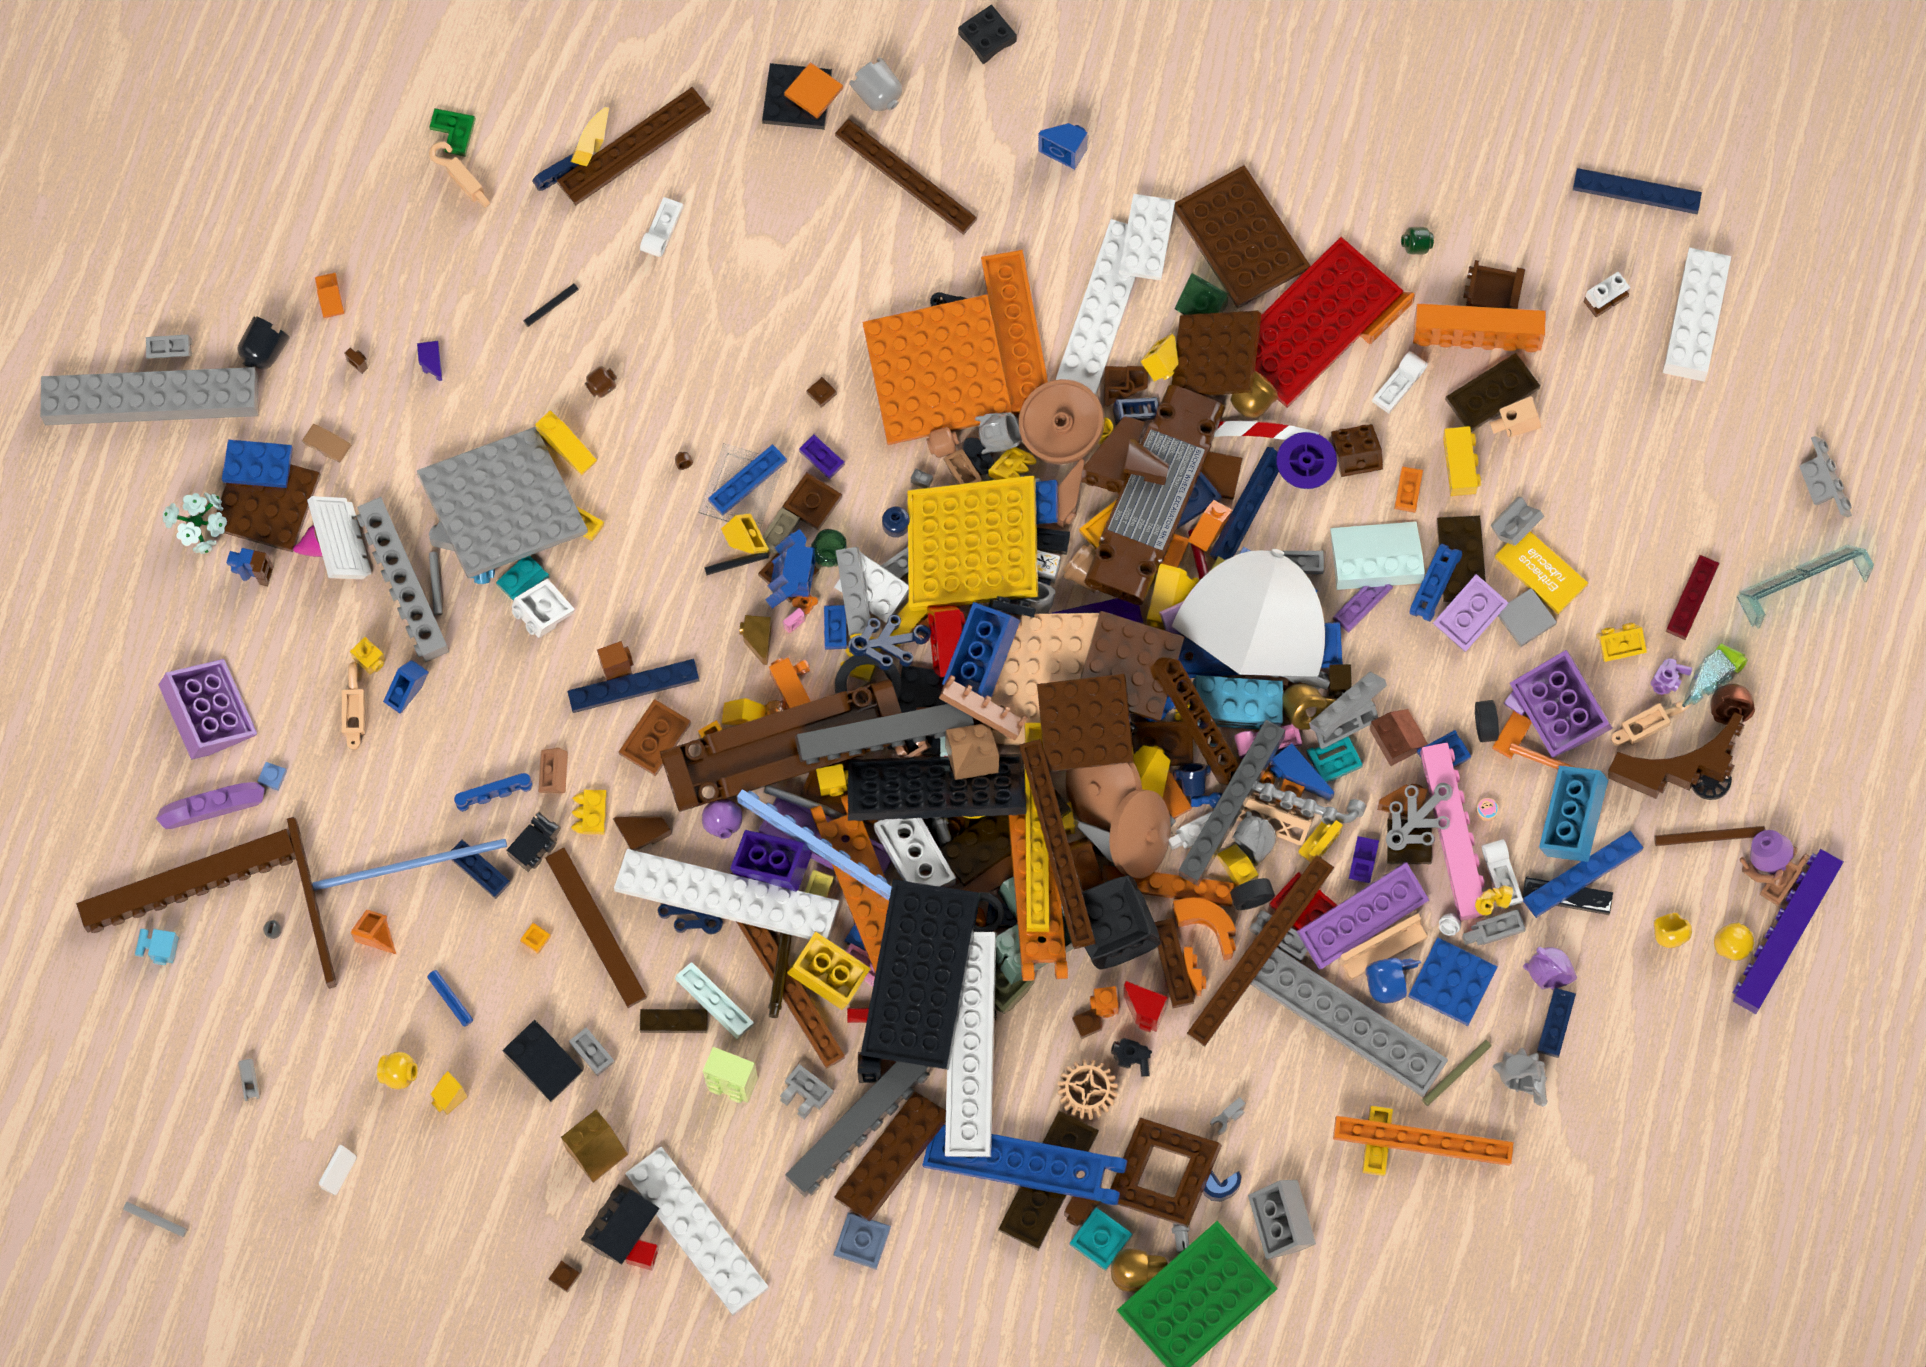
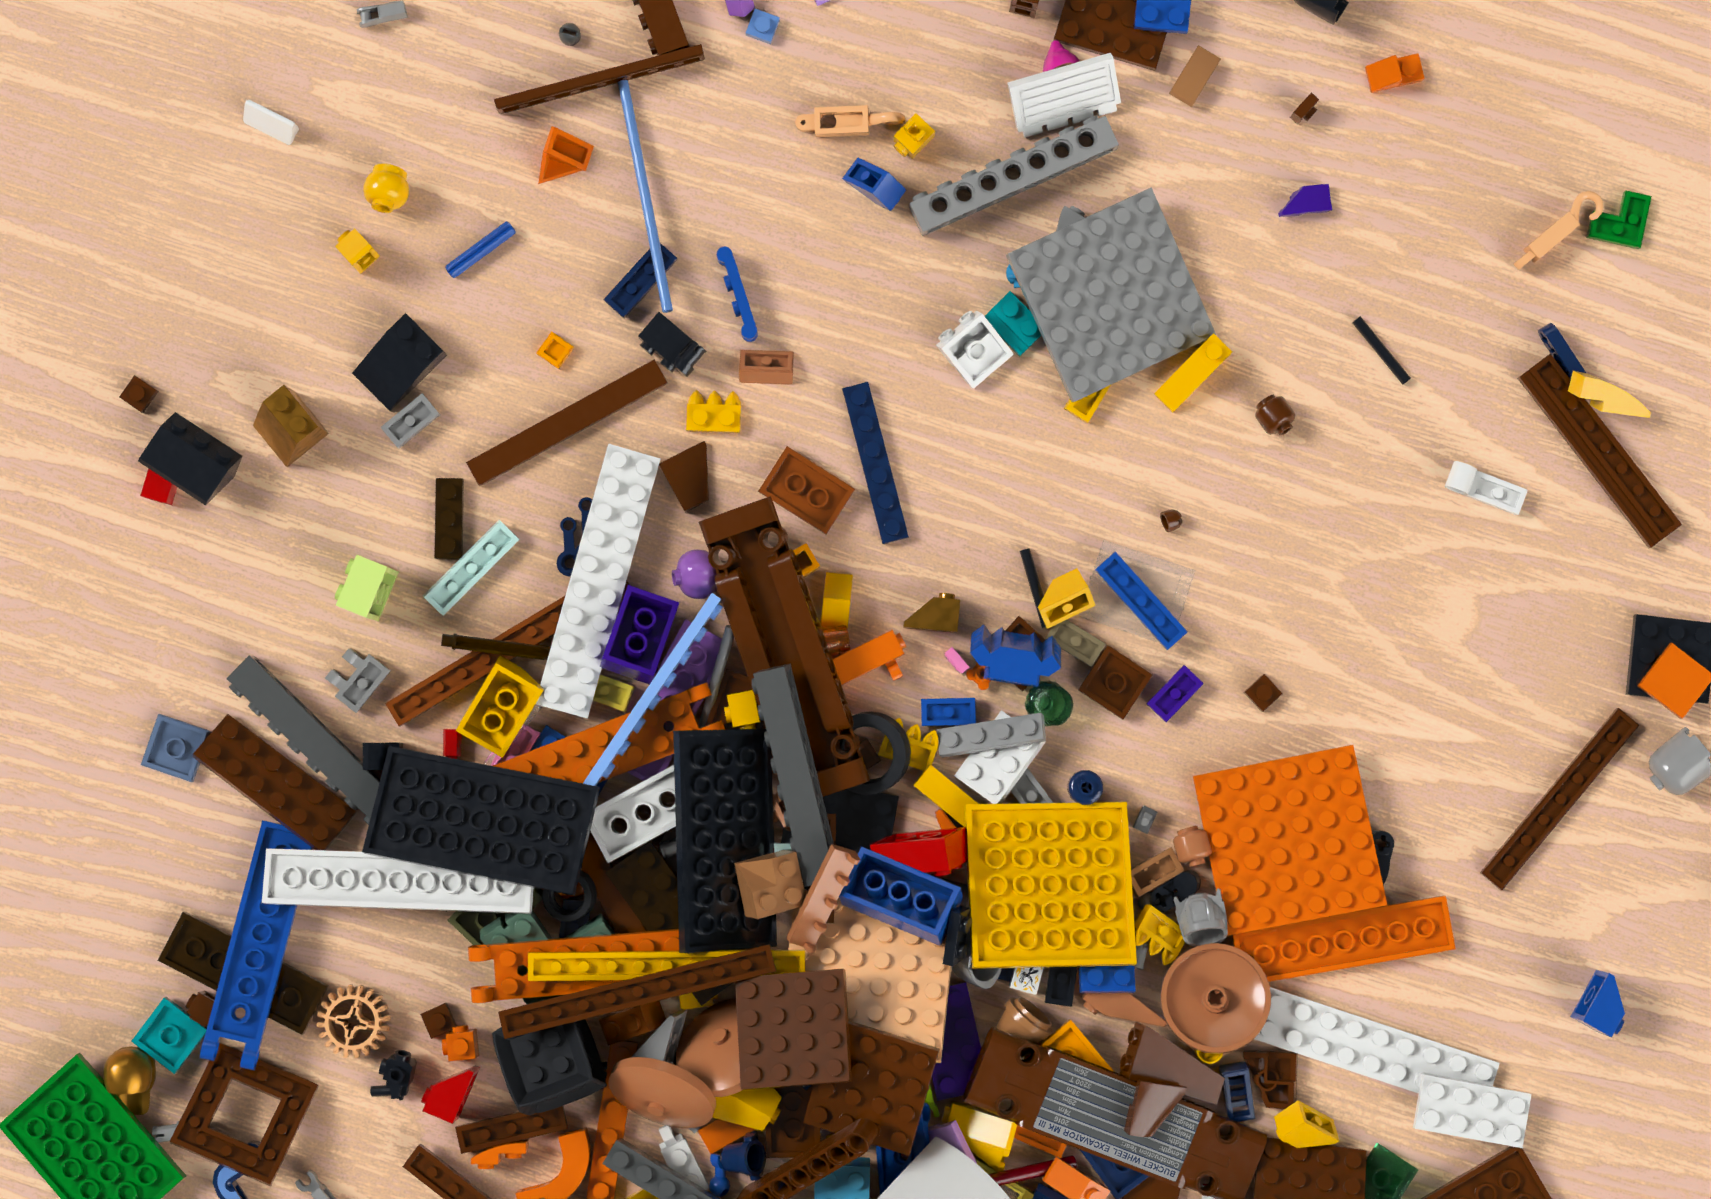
camera: 85 degrees right, 15 degrees up
(435, 582) = (1013, 216): light grey bar -> none
(615, 660) = (900, 439): dark orange brick -> none
(697, 1231) = (191, 550): white plate -> none
(887, 643) = (918, 775): plant -> none

